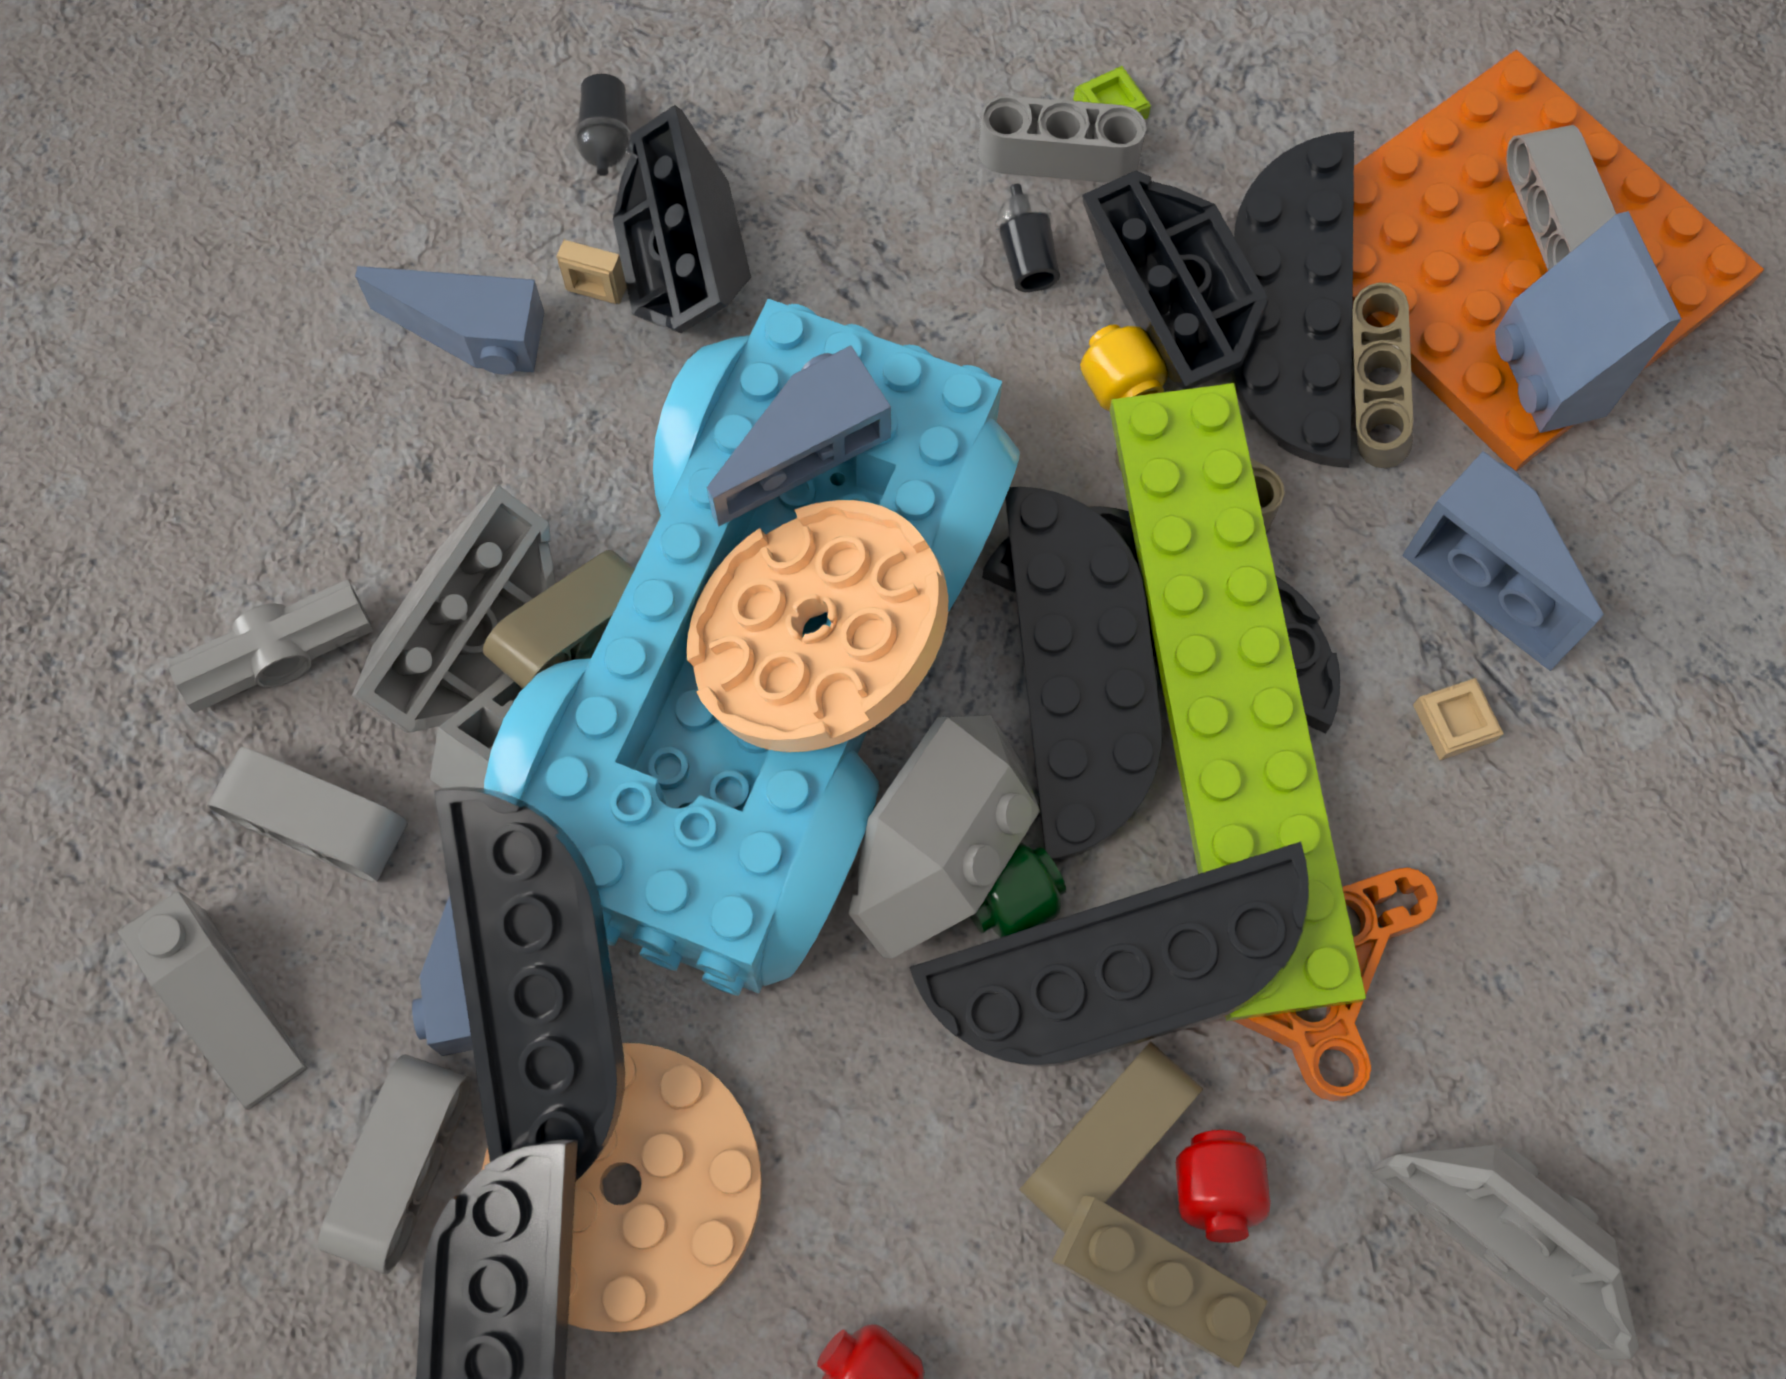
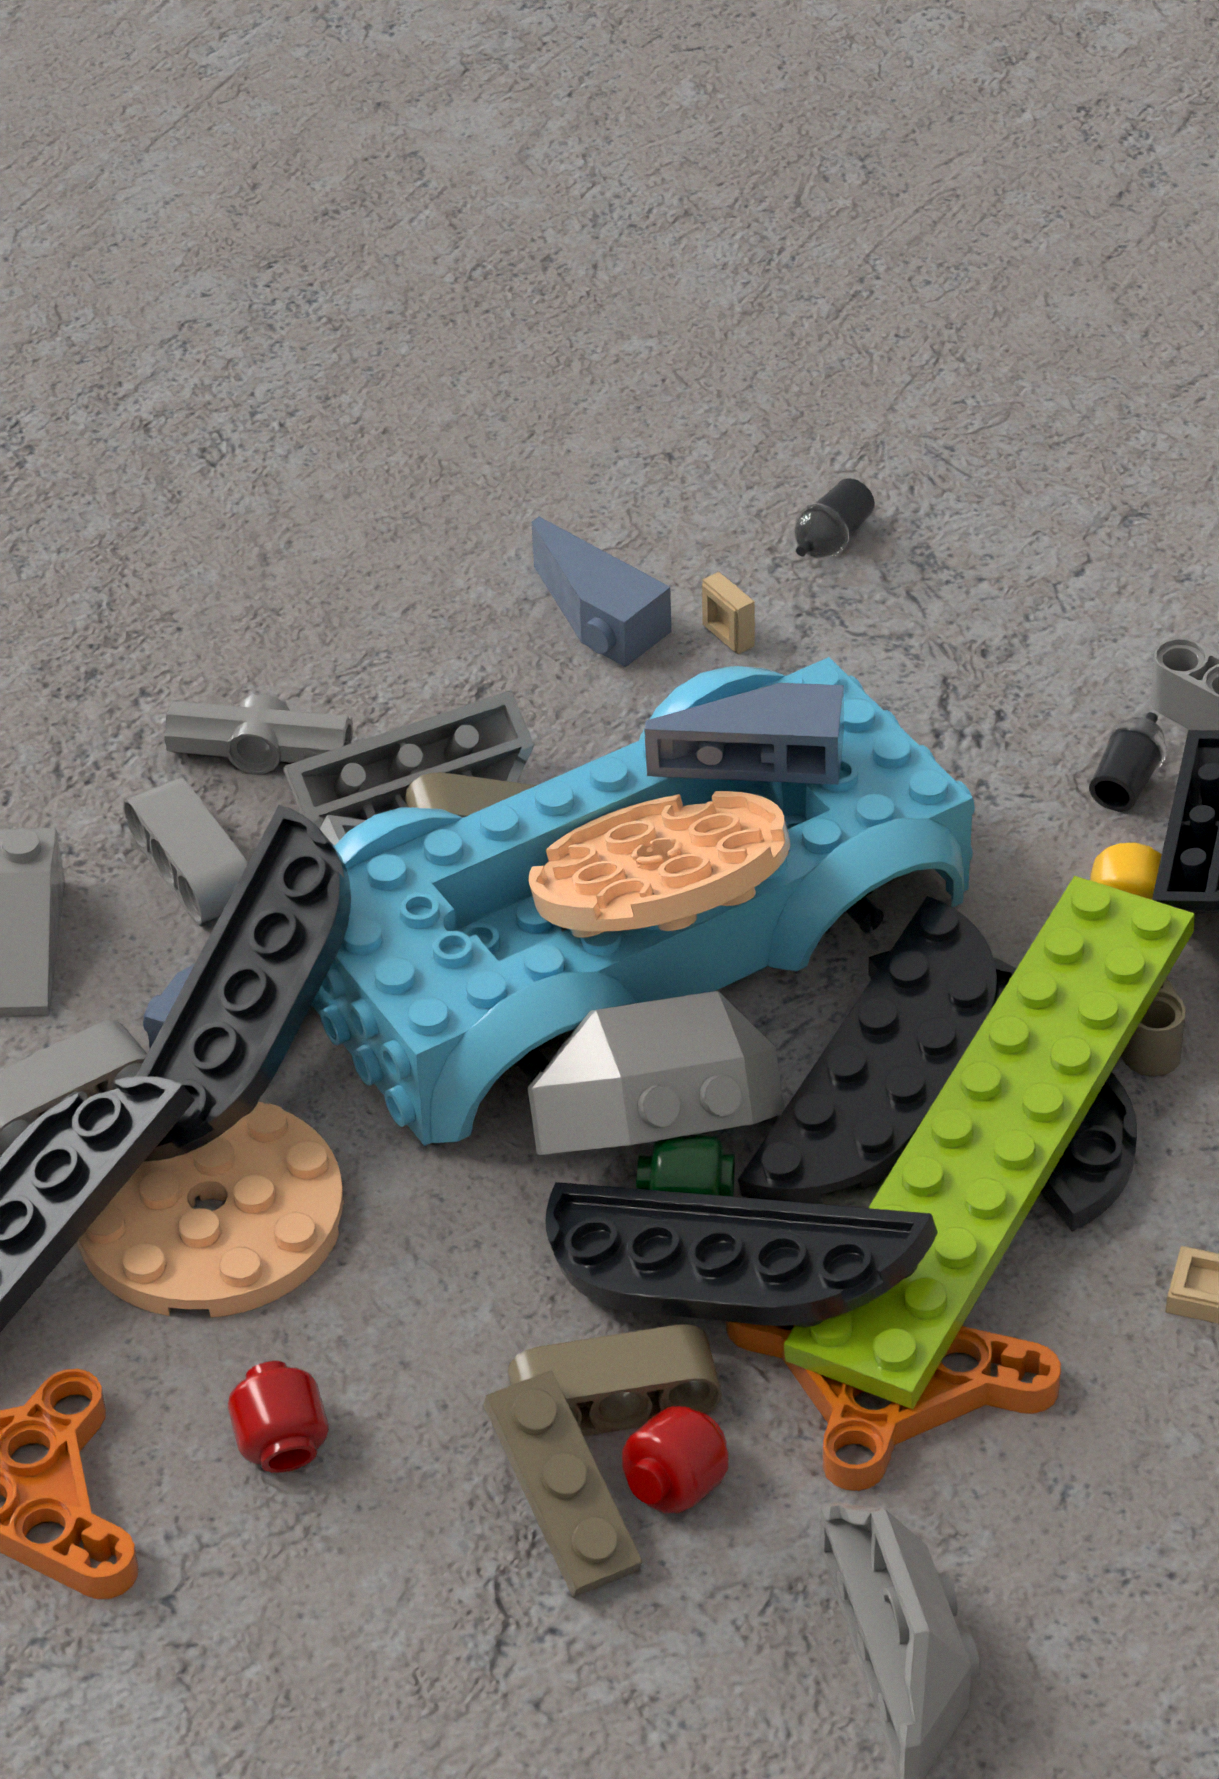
camera: 40 degrees right, 25 degrees down
(677, 227) = (834, 603): black wedge -> none

